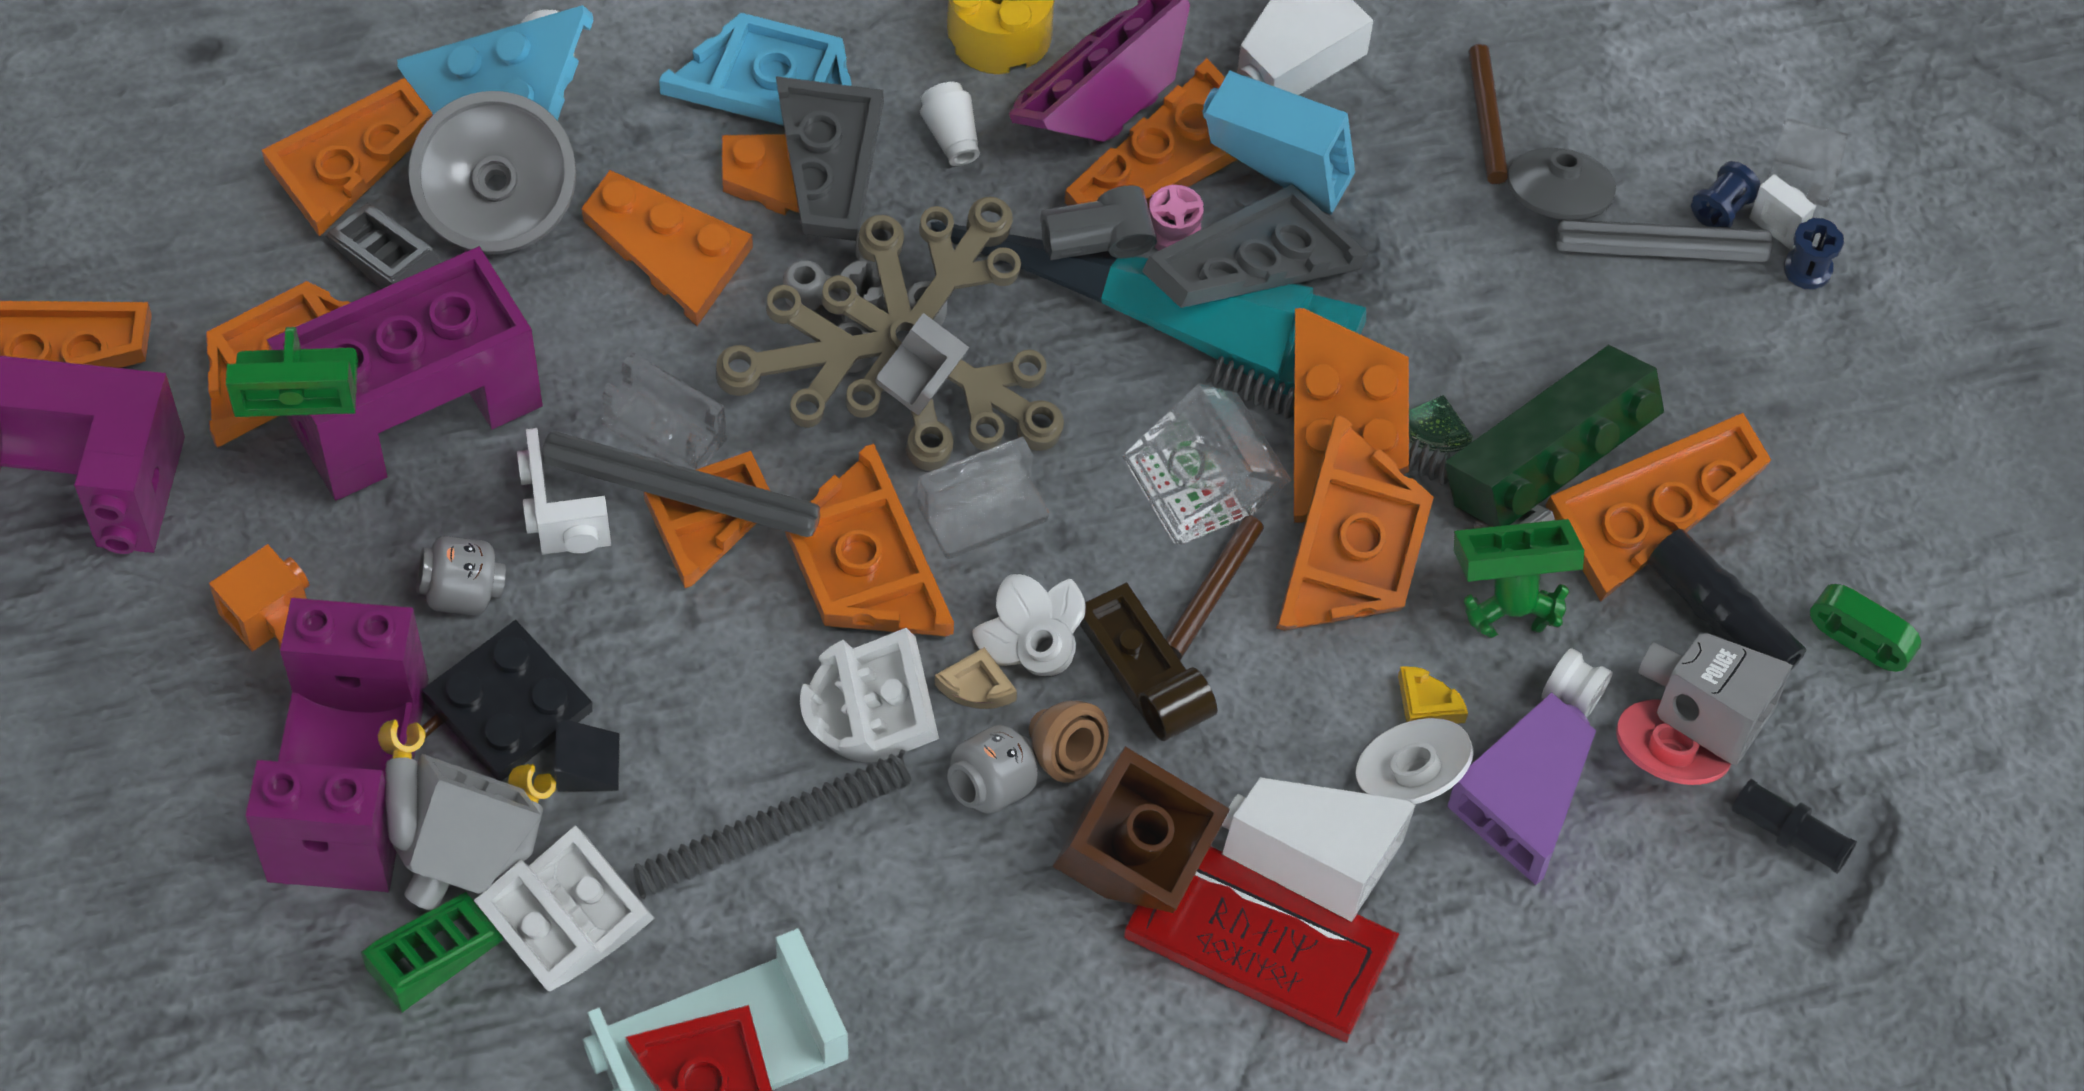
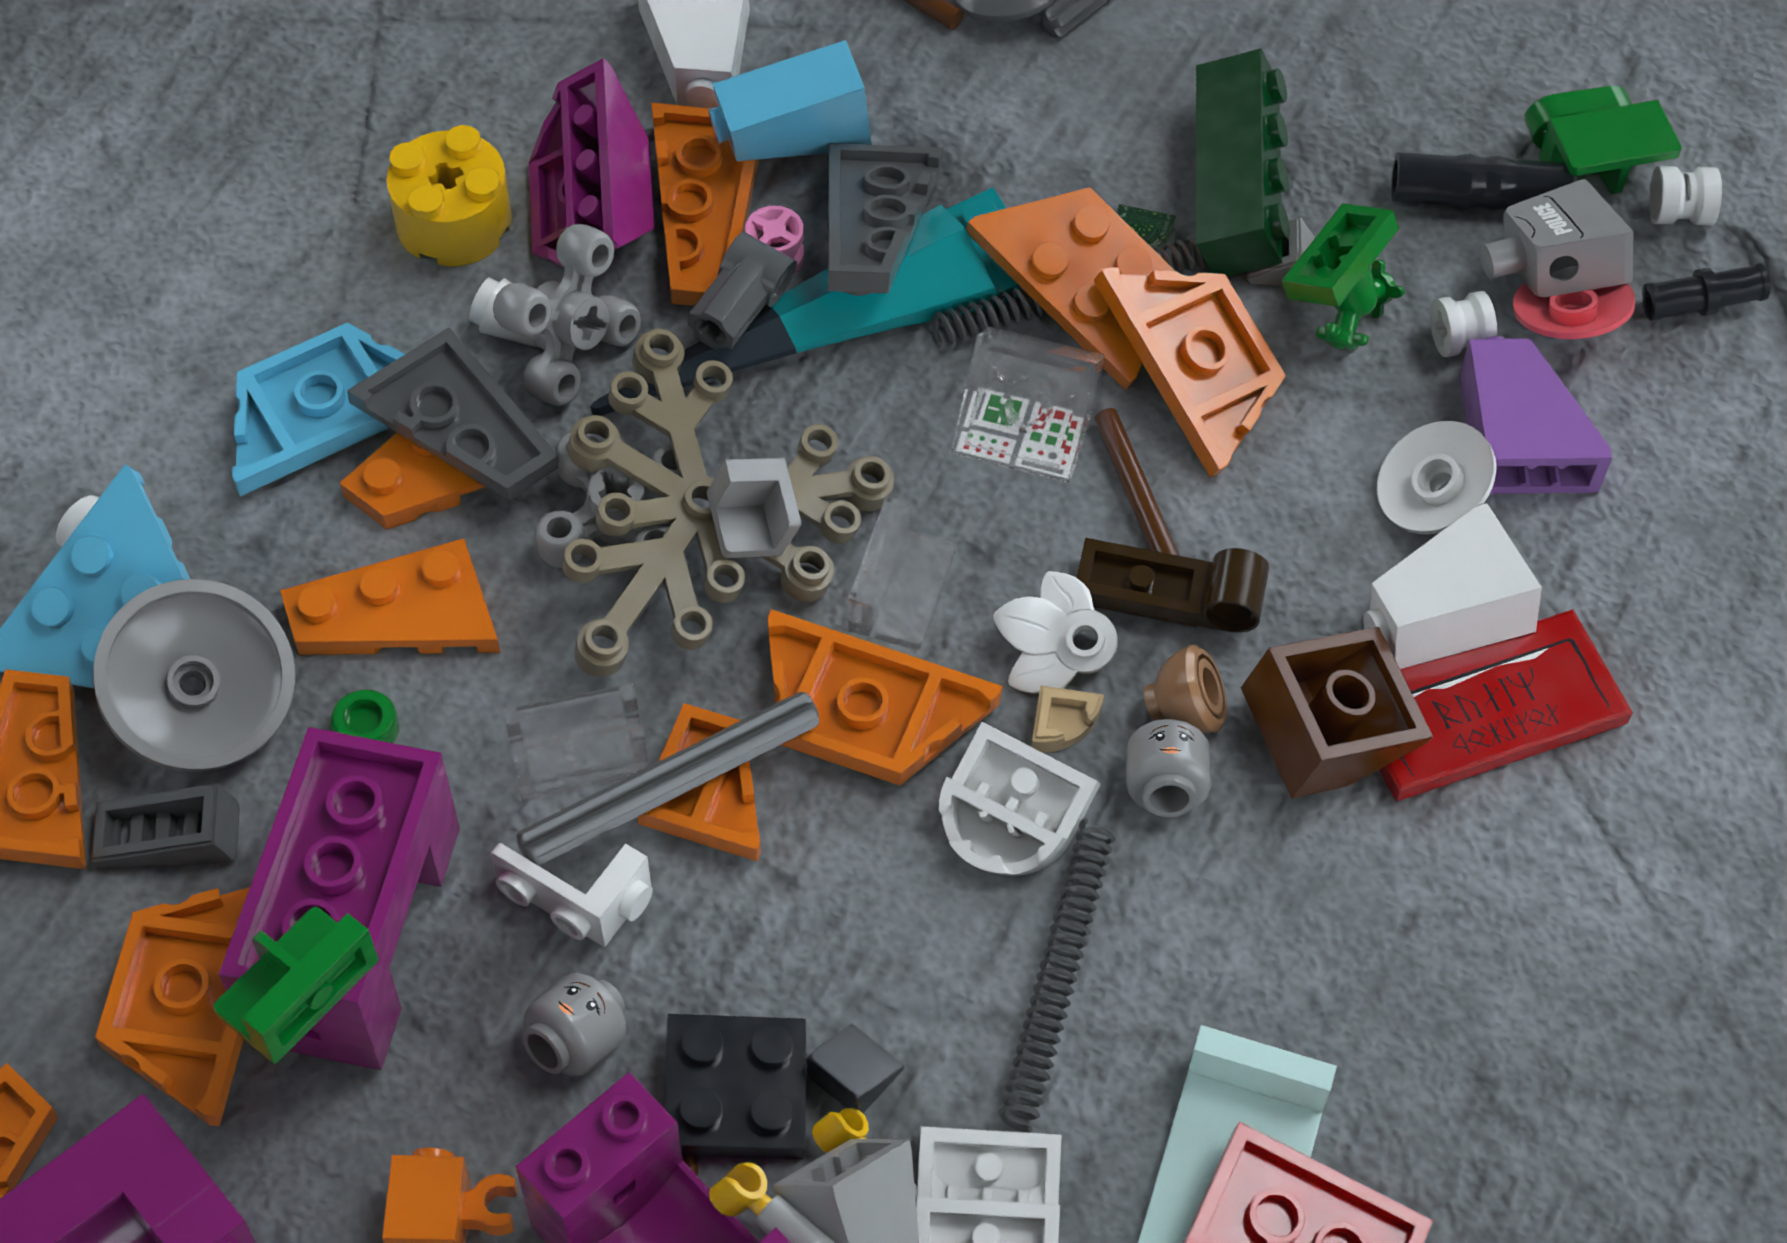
camera: 45 degrees left, 0 degrees up
(566, 294) = (366, 716): none -> green tile
(967, 145) = (567, 314): none -> light grey gear
(1429, 697) = (1375, 429): yellow tile -> none
(1644, 501) = (1345, 141): orange wing -> none
(1856, 660) = (1611, 141): none -> green panel
(1869, 748) = (1685, 195): none -> white wheel

